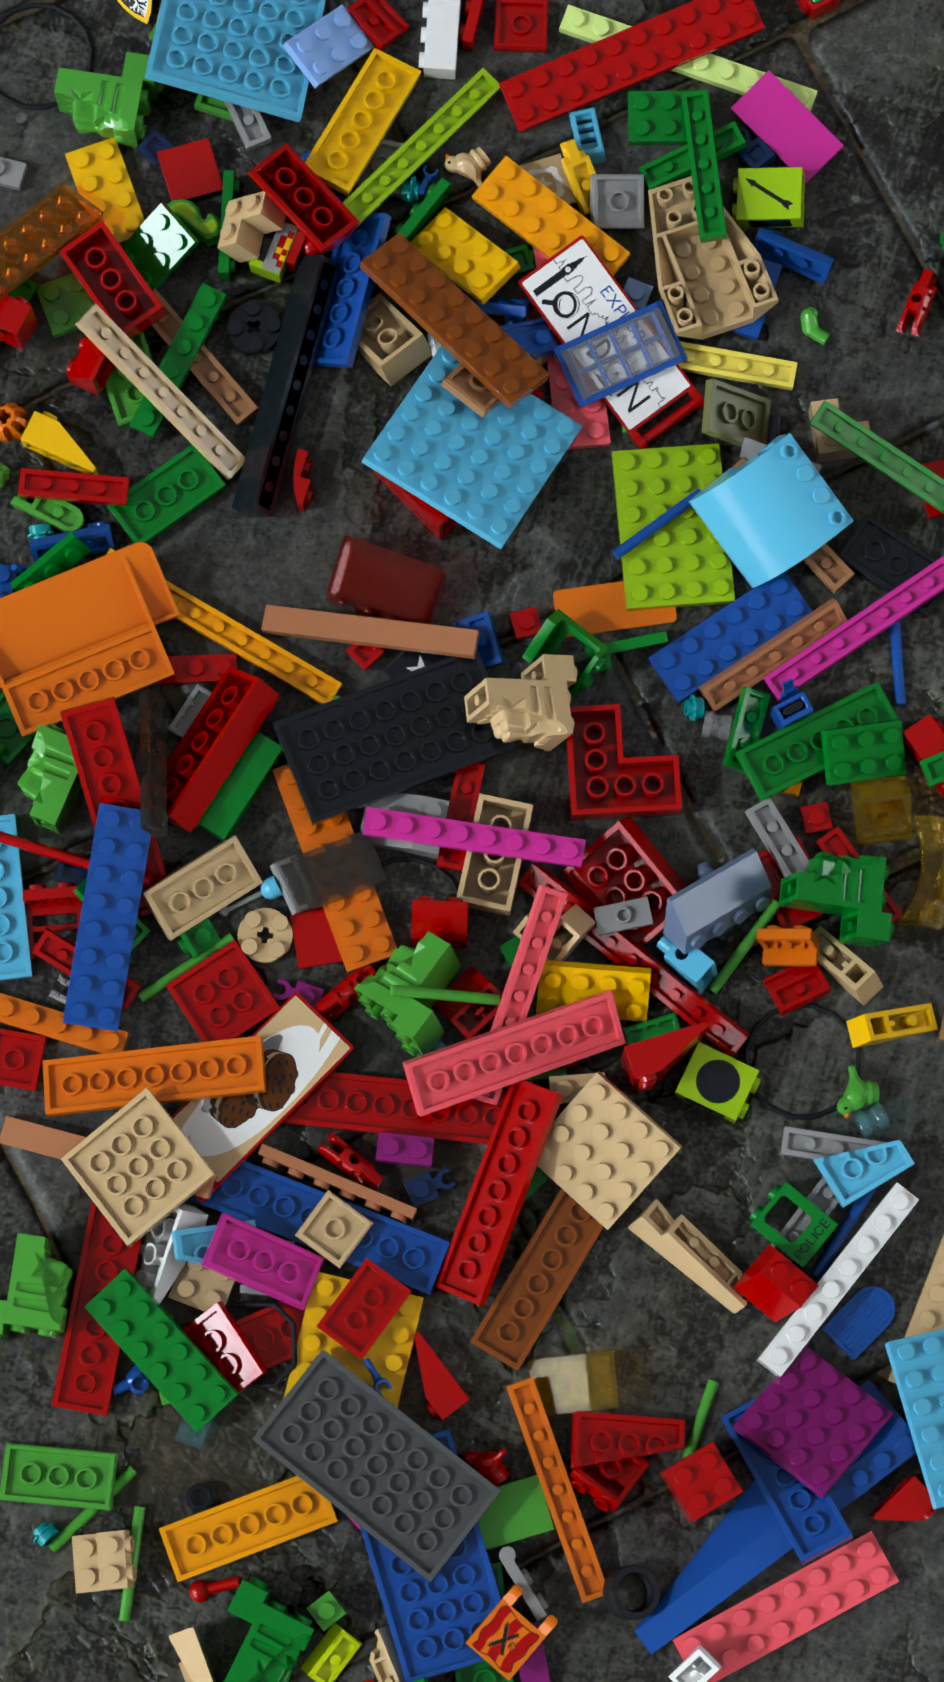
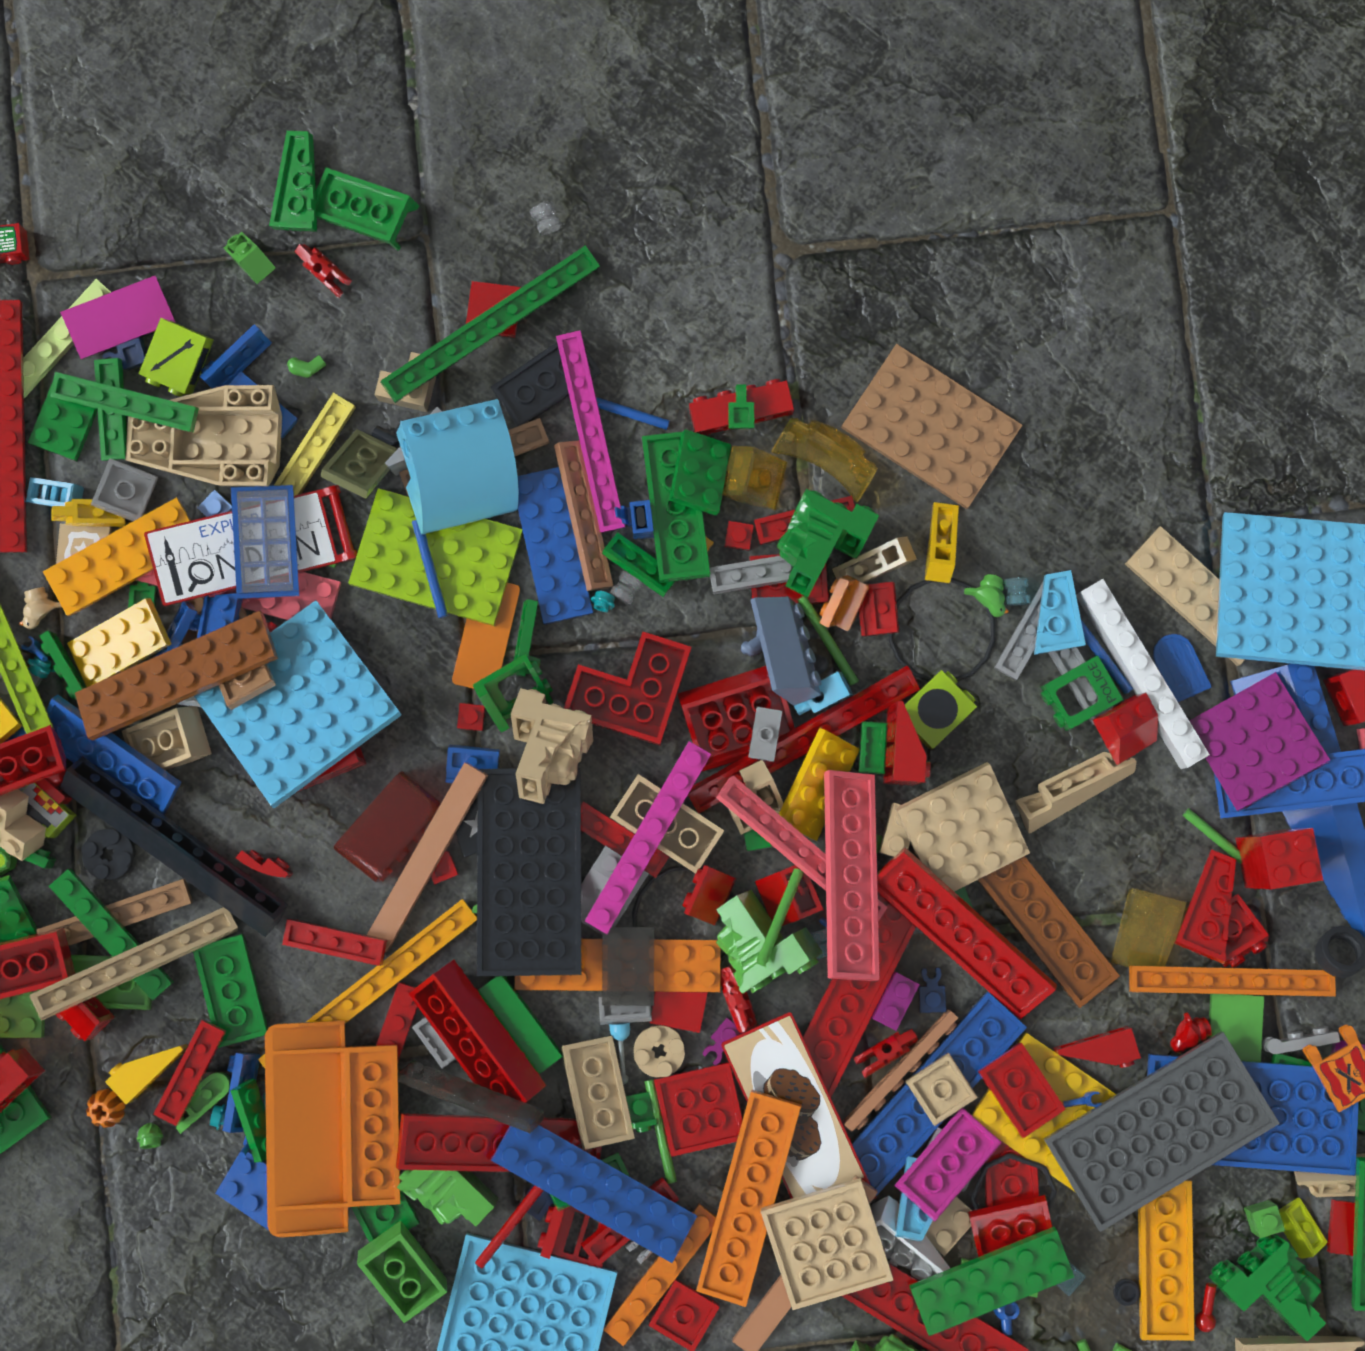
camera: 70 degrees left, 5 degrees up
(252, 576) = (334, 942): none -> red plate
(900, 228) = (249, 257): none -> bright green slope

